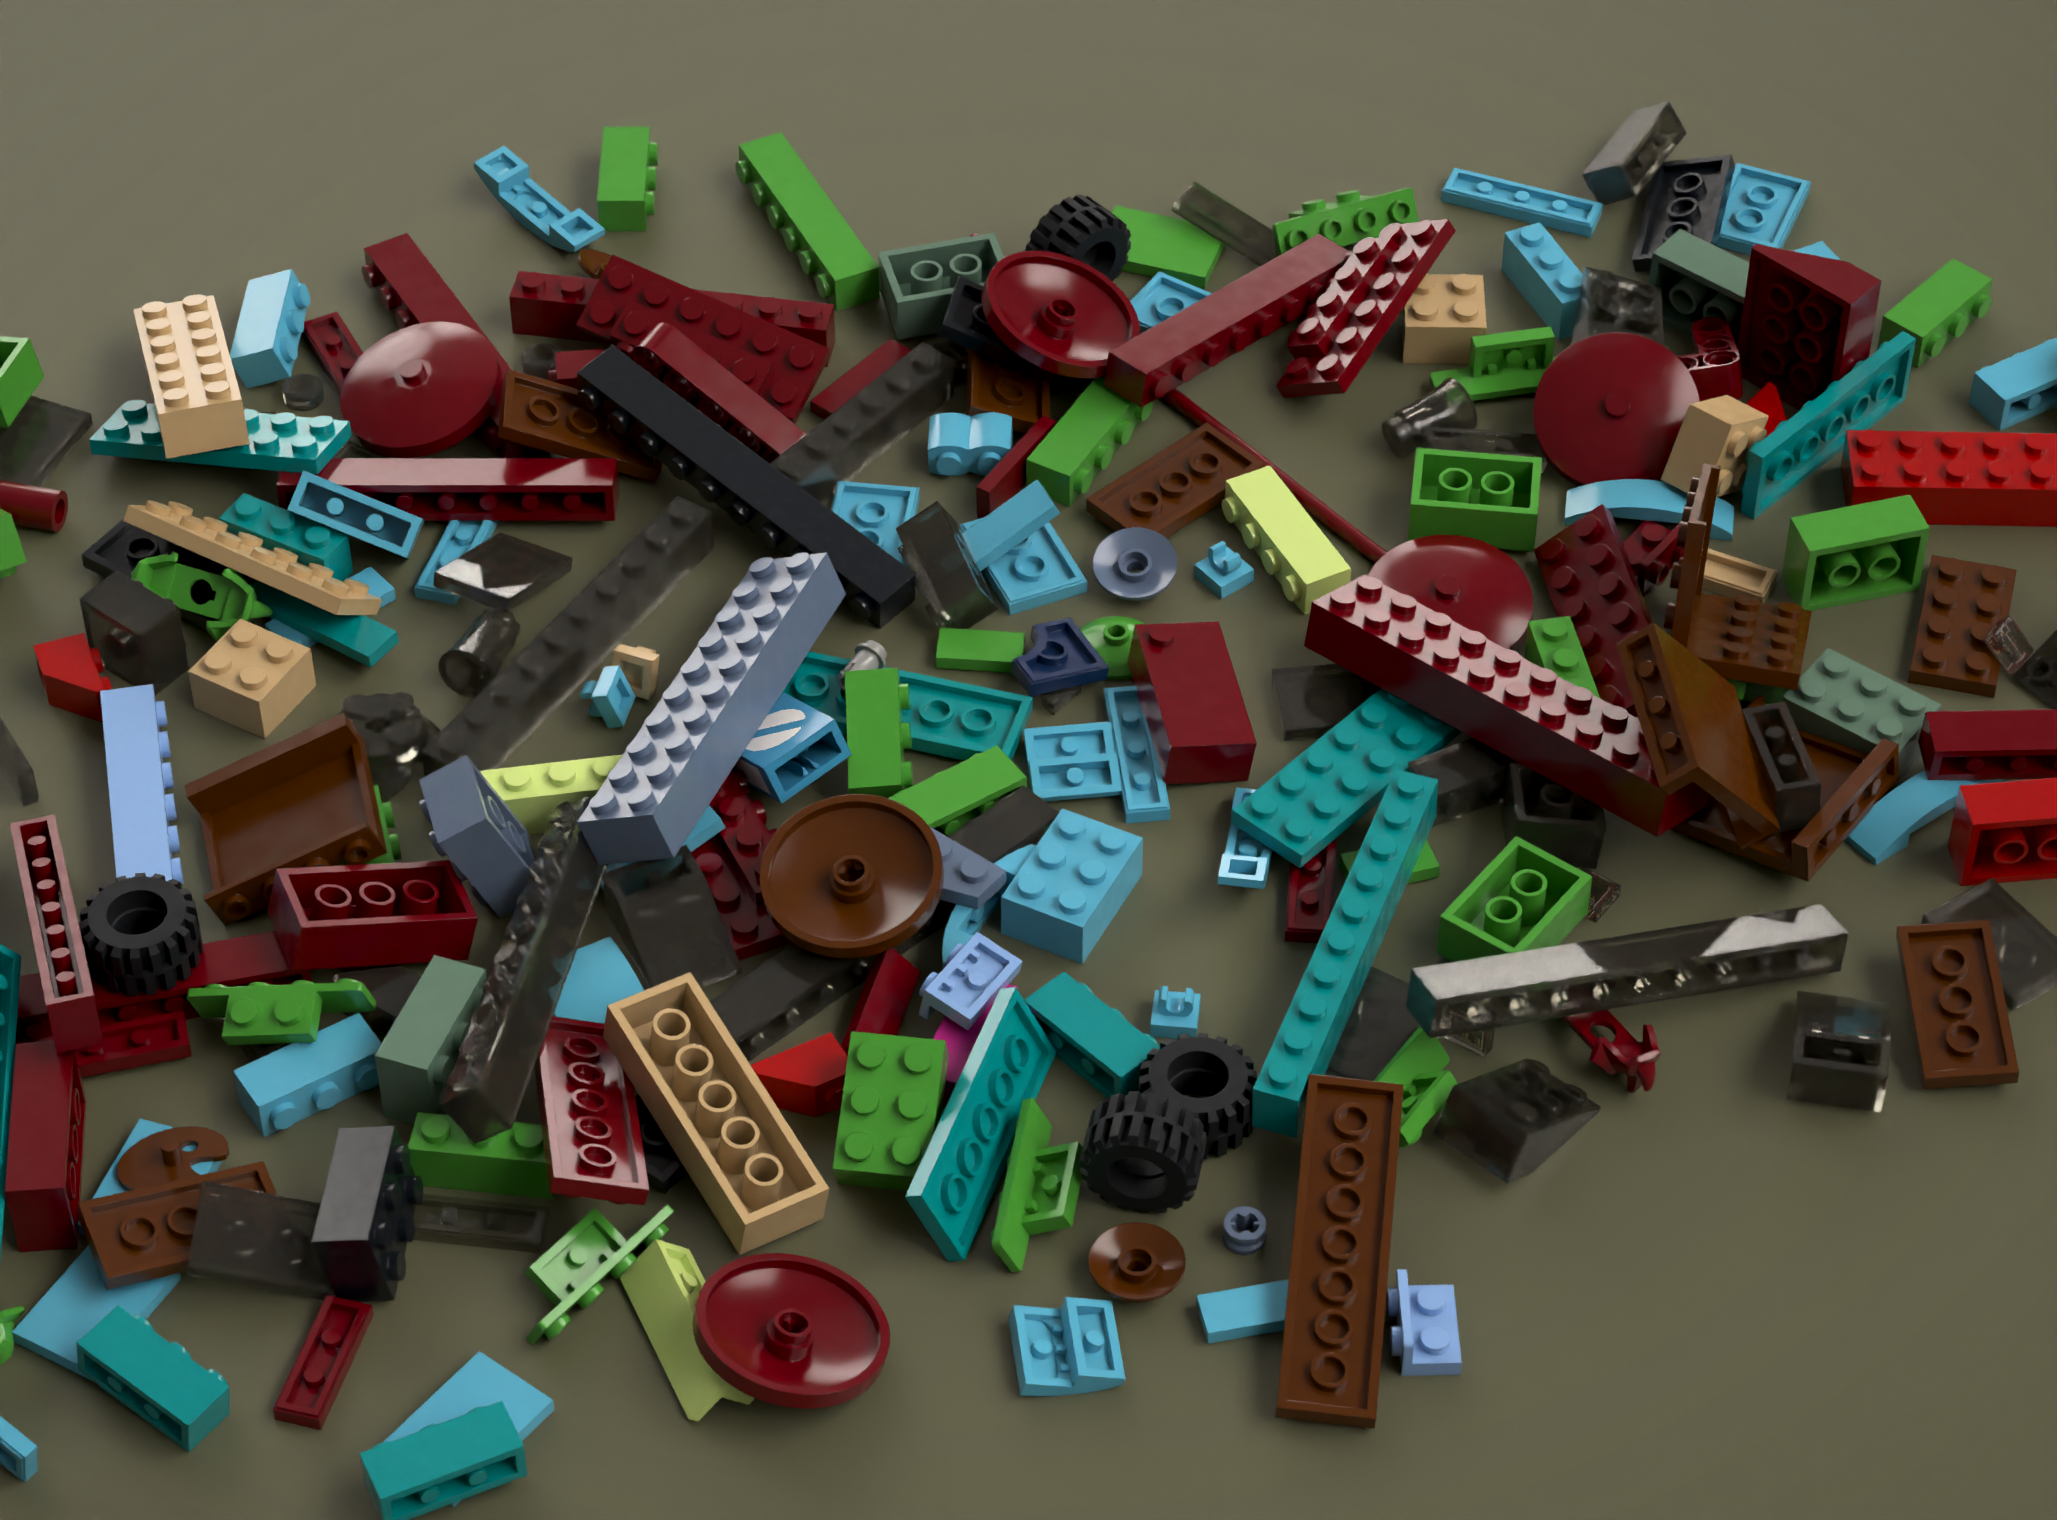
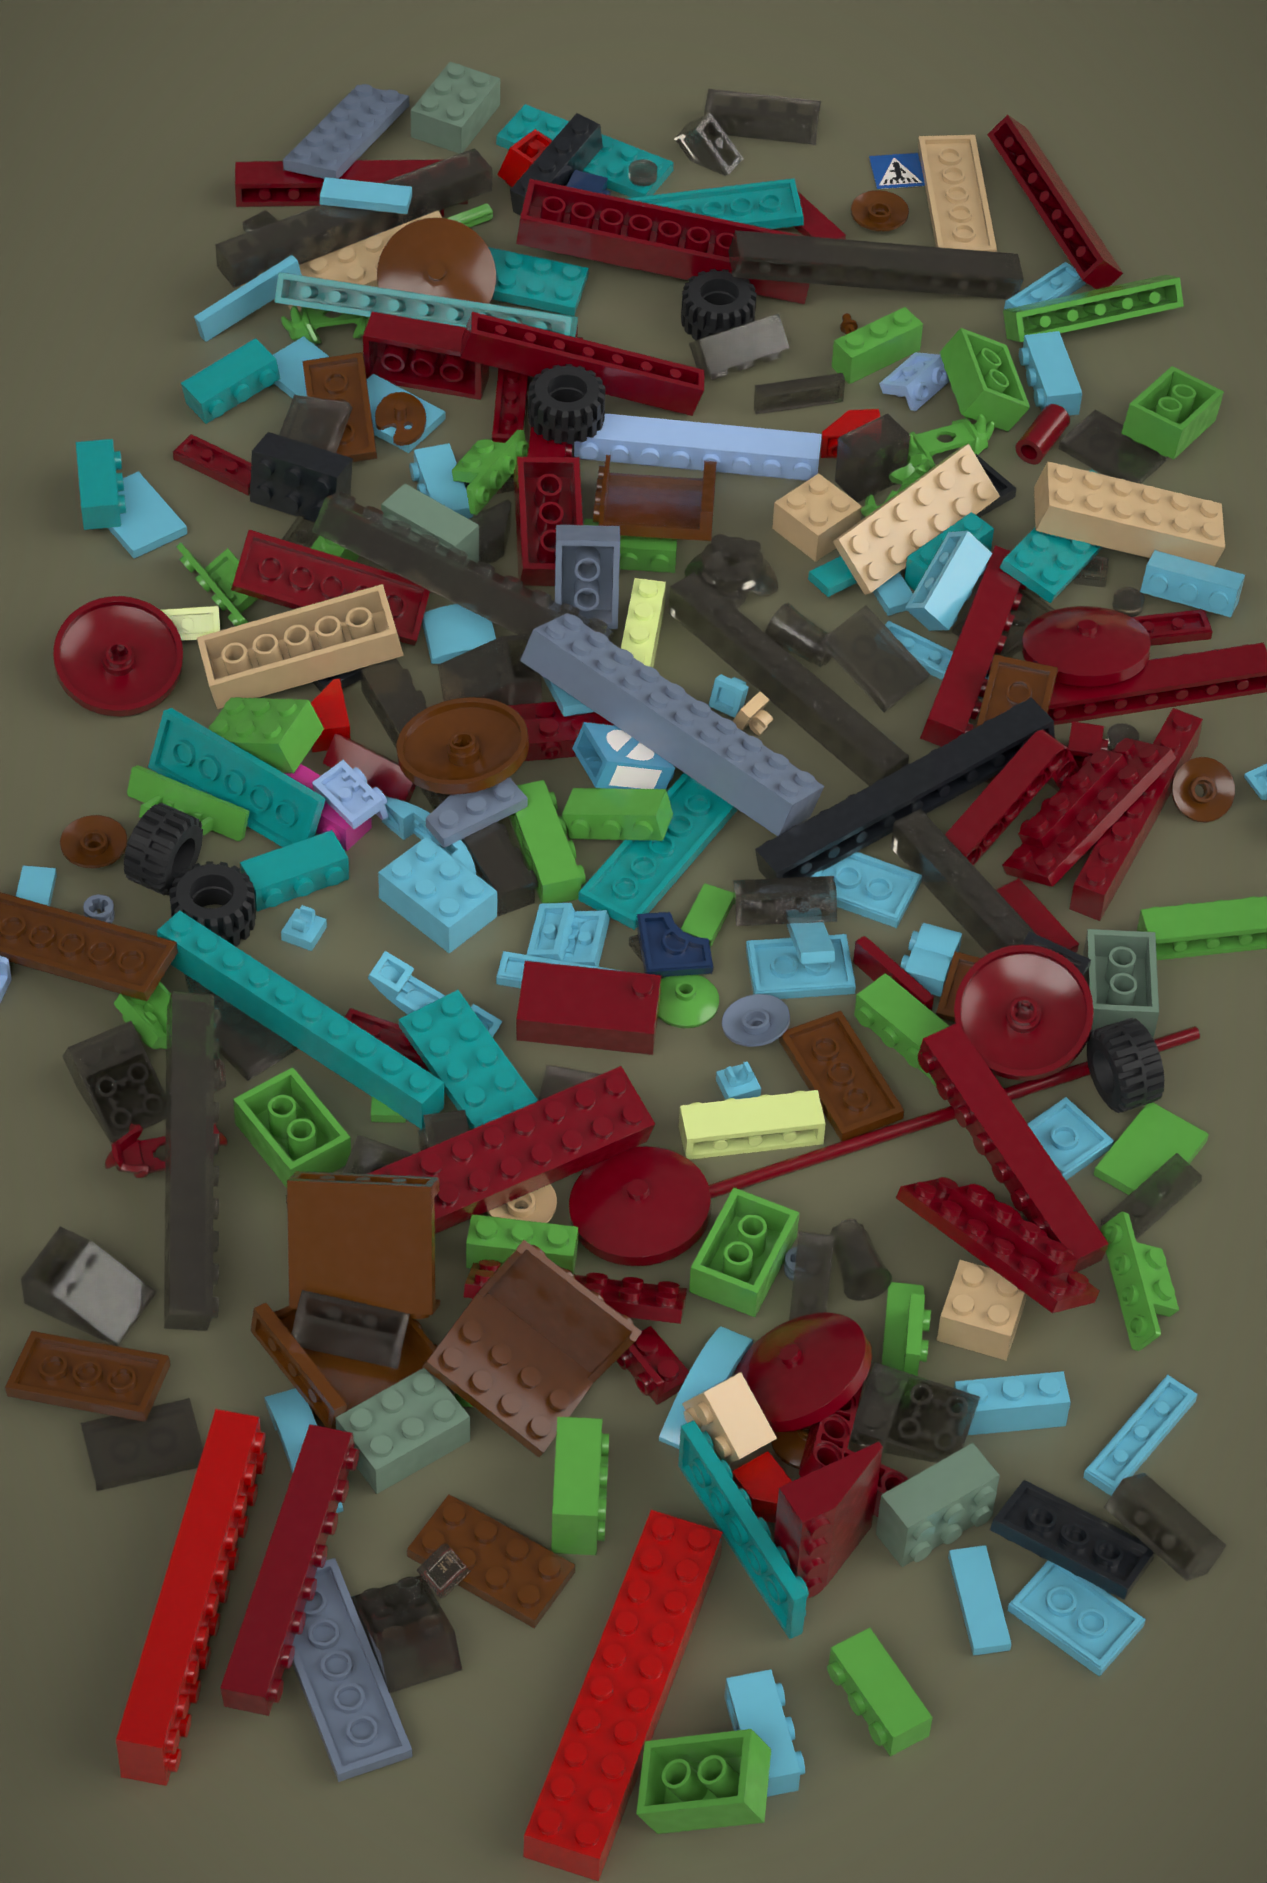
camera: 105 degrees right, 5 degrees up
(40, 571) = (961, 431): none -> bright green piece
(867, 656) = (699, 828): light grey pin -> none
(1066, 1348) = (51, 795): medium azure slope -> none
(1737, 577) = (619, 1410): tan tile -> none

